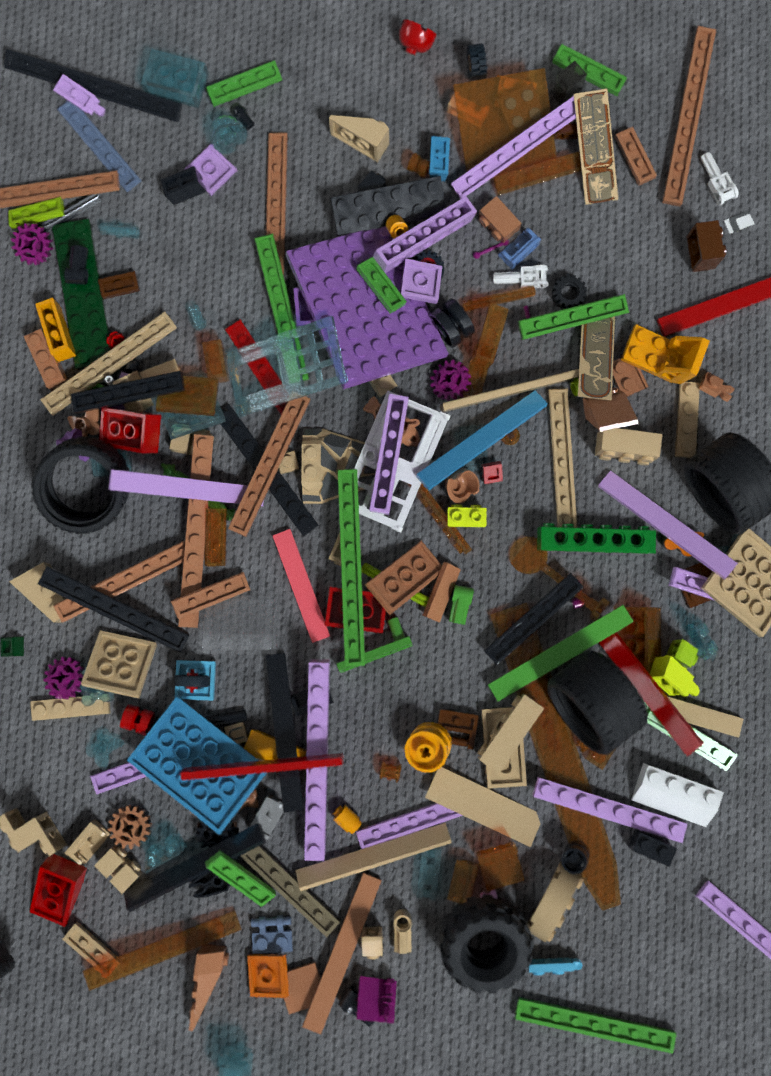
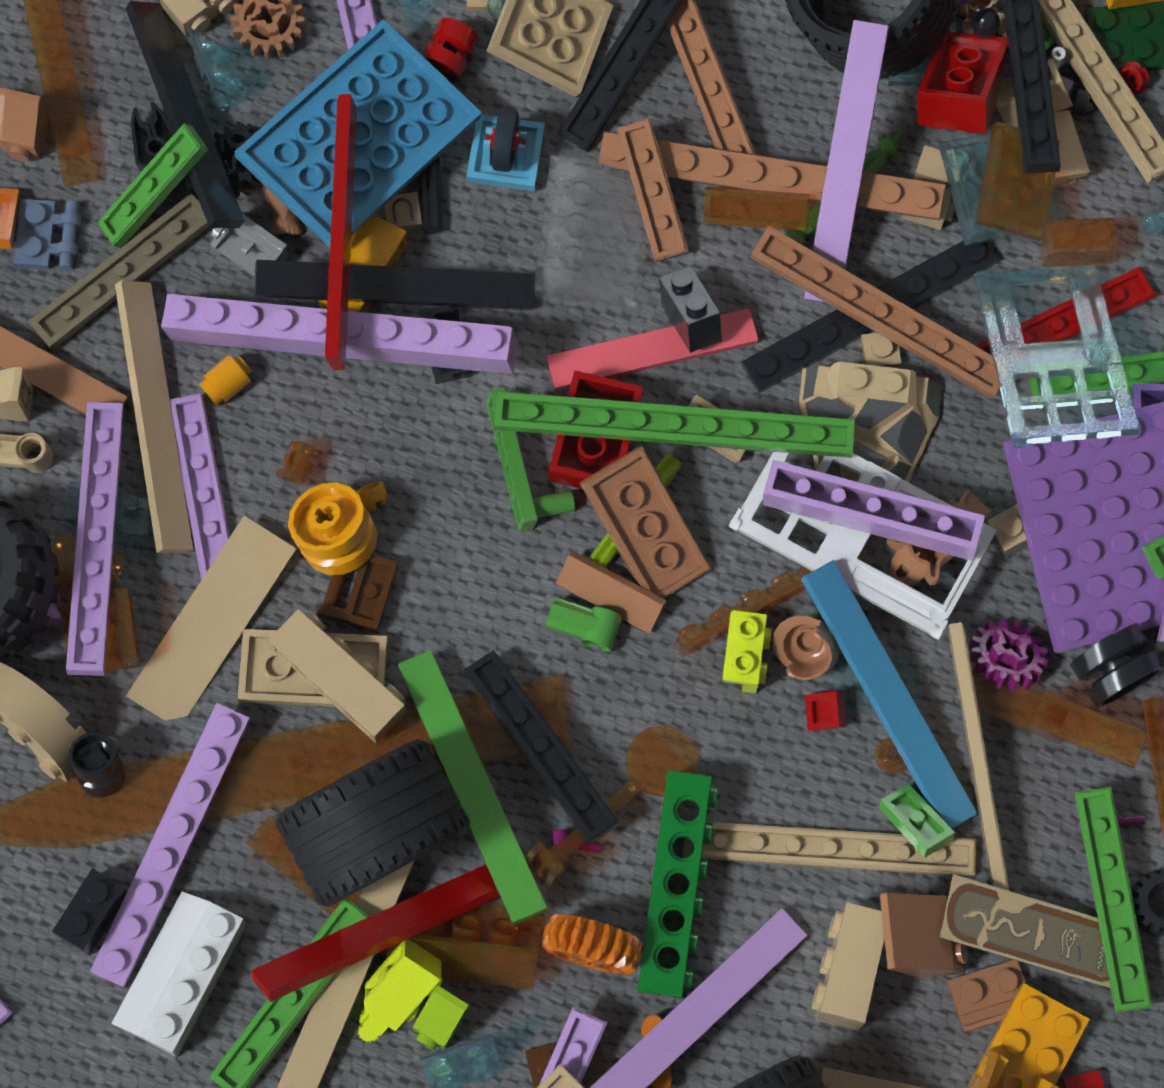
camera: 90 degrees right, 10 degrees down
(93, 420) = (986, 23): none -> black hinge
(279, 566) = (690, 309): none -> black brick
(404, 726) = (373, 493): none -> light orange hinge
(451, 878) = (95, 539): none -> lavender plate
(544, 420) = (916, 820): none -> bright green plate
(636, 579) = (592, 944): none -> orange gear

